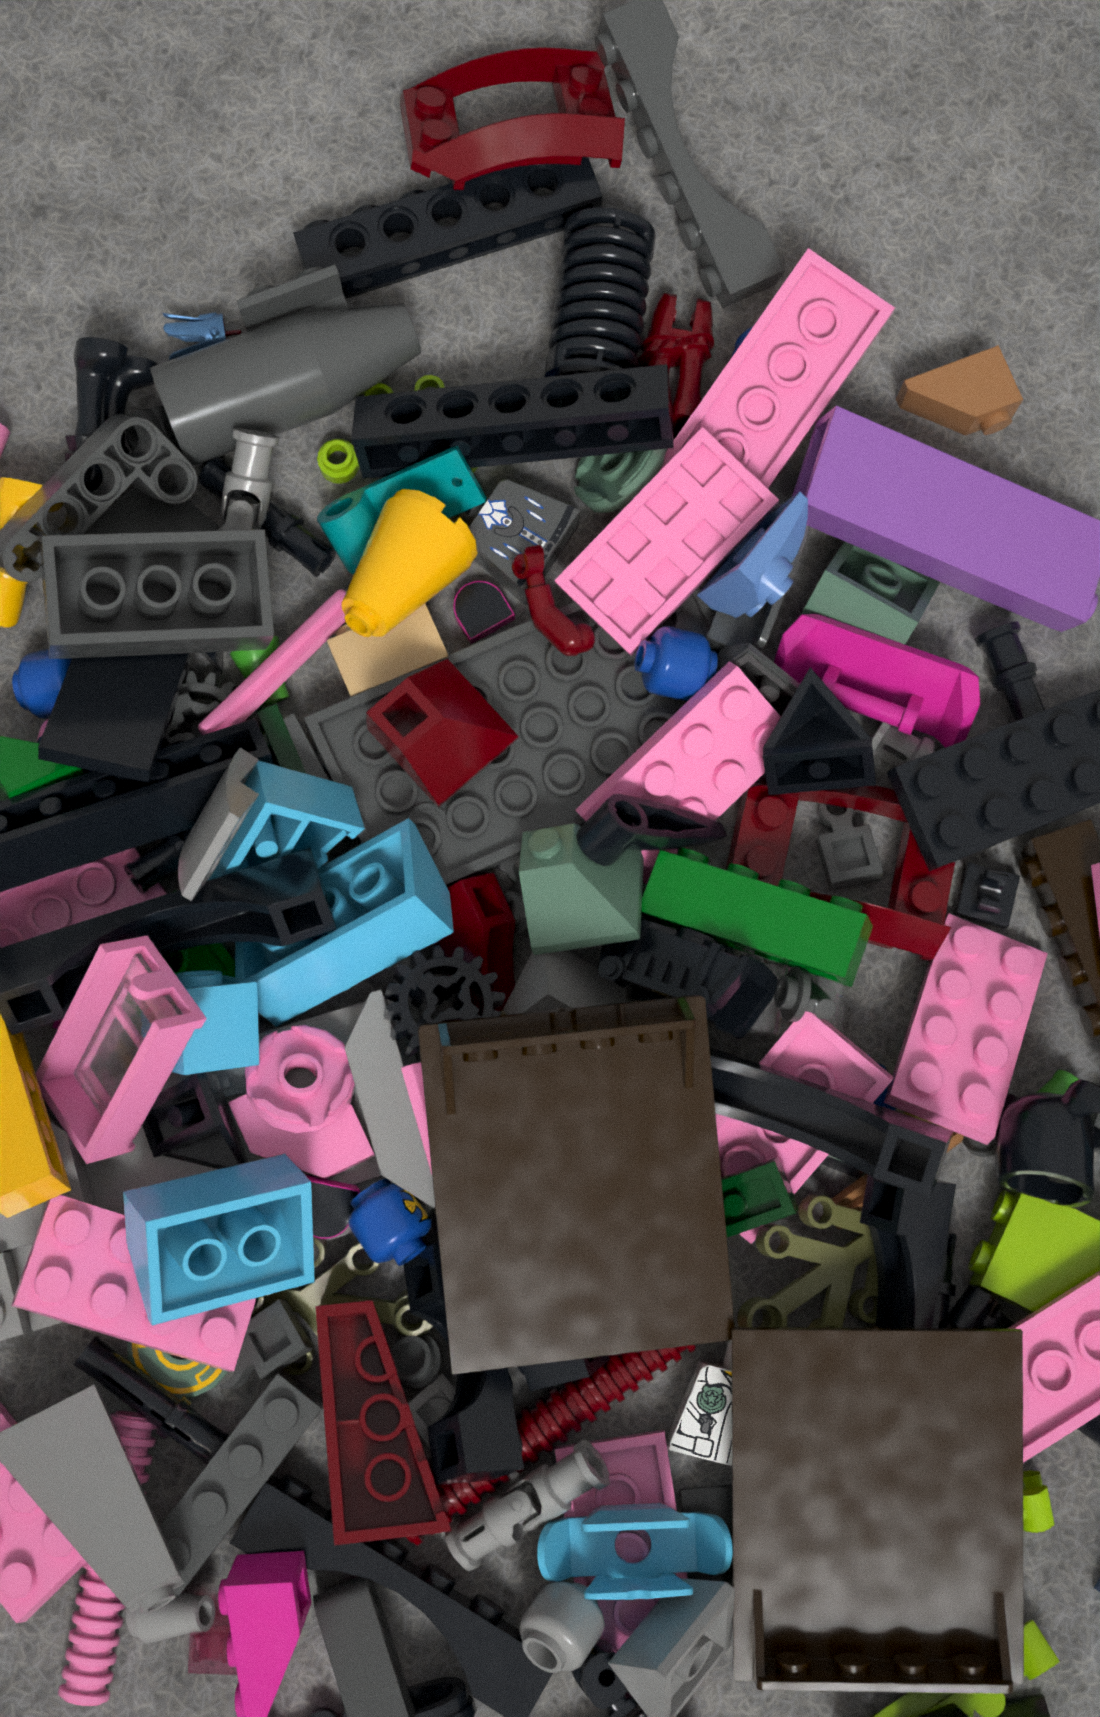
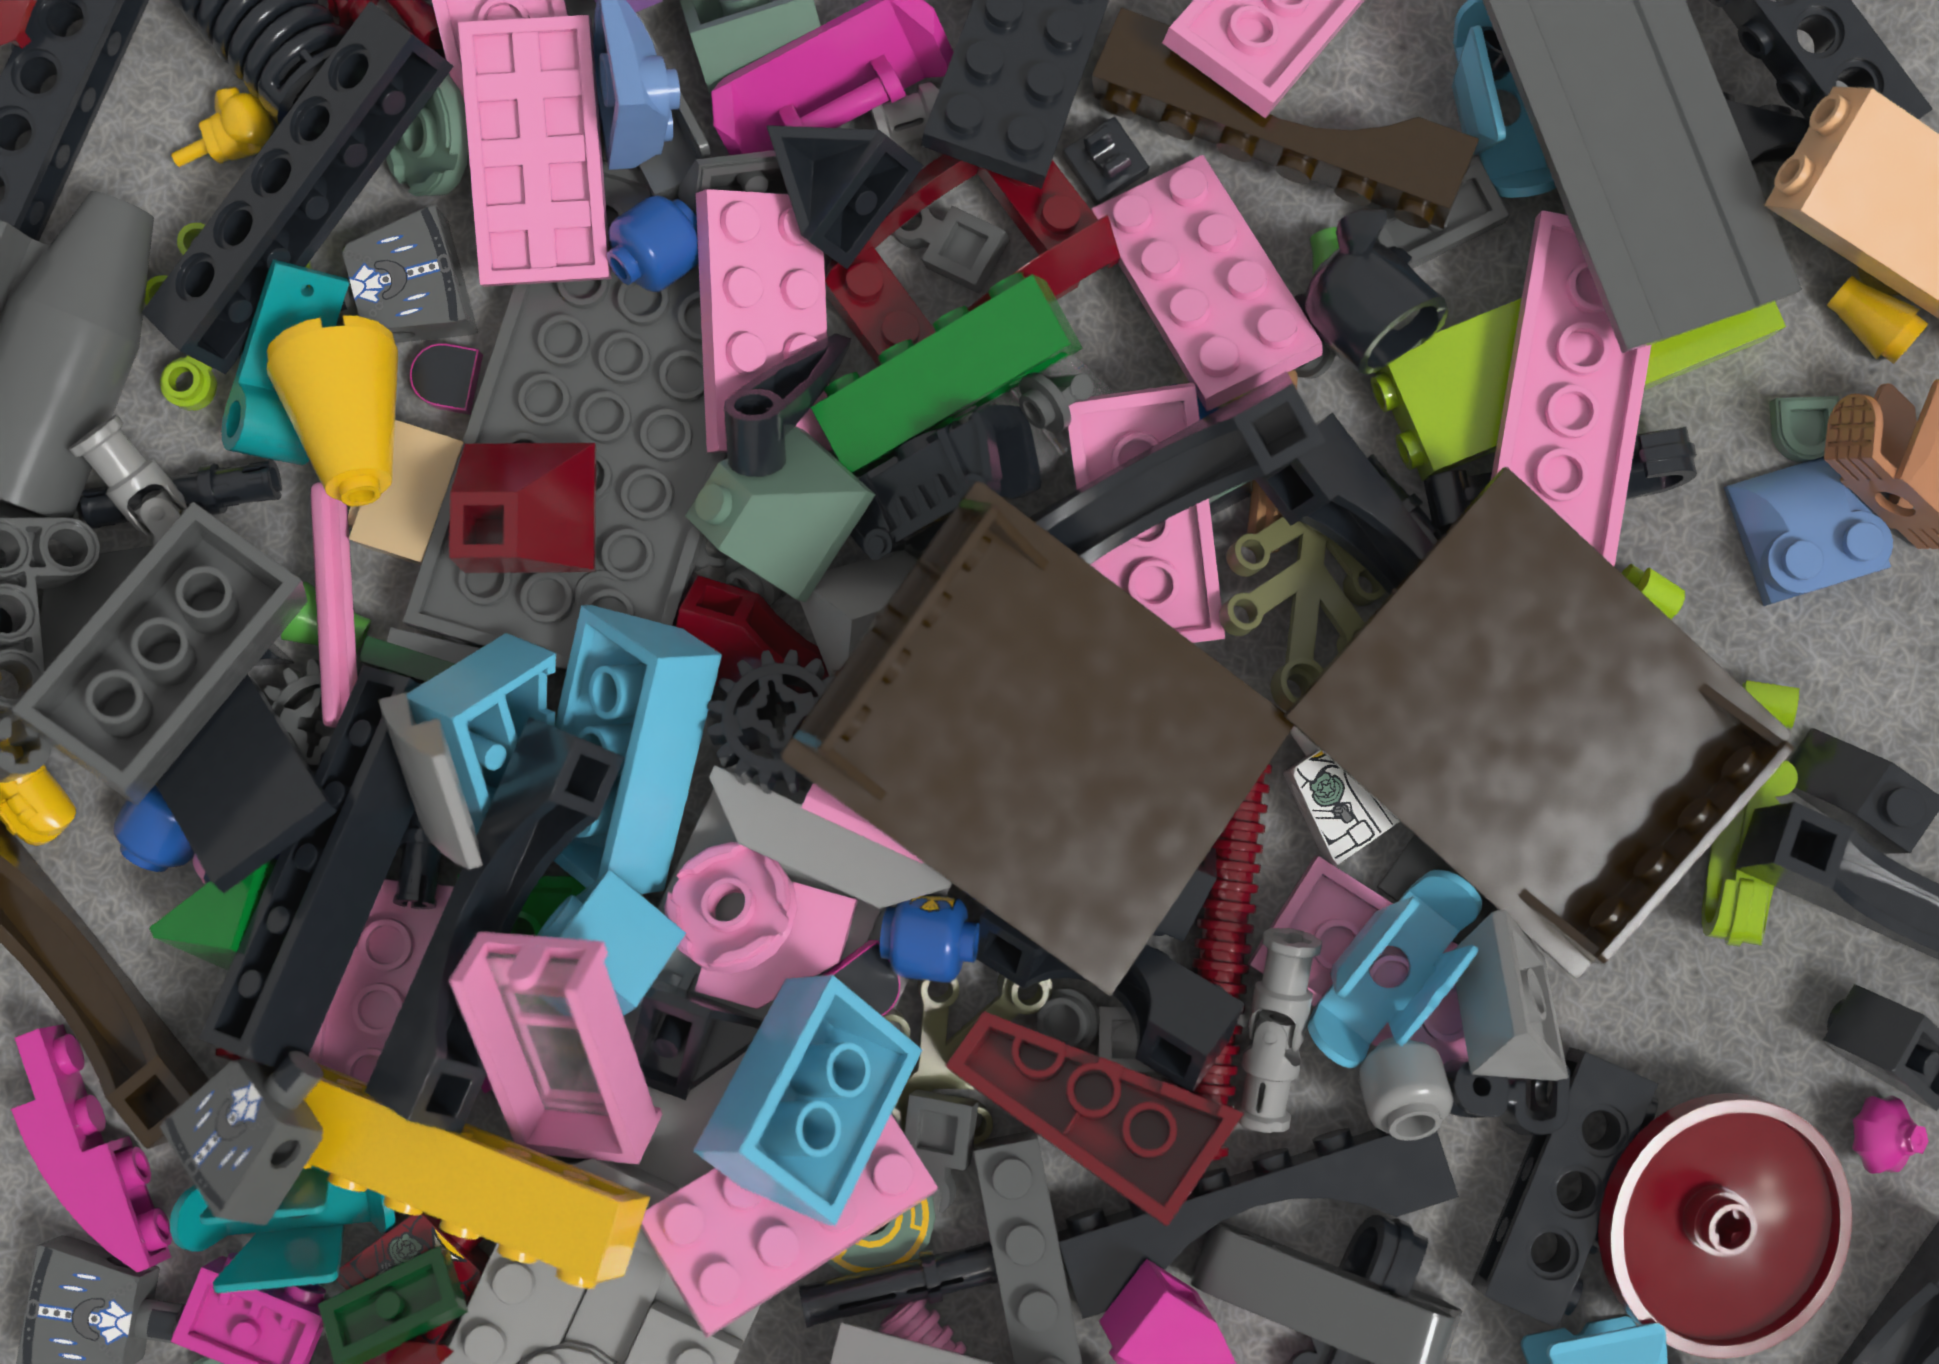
camera: 45 degrees left, 5 degrees up
(516, 353) = (233, 132): none -> yellow piece
(545, 616) = (505, 321): dark red arm -> none
(756, 1197) = (1191, 594): dark green plate -> none

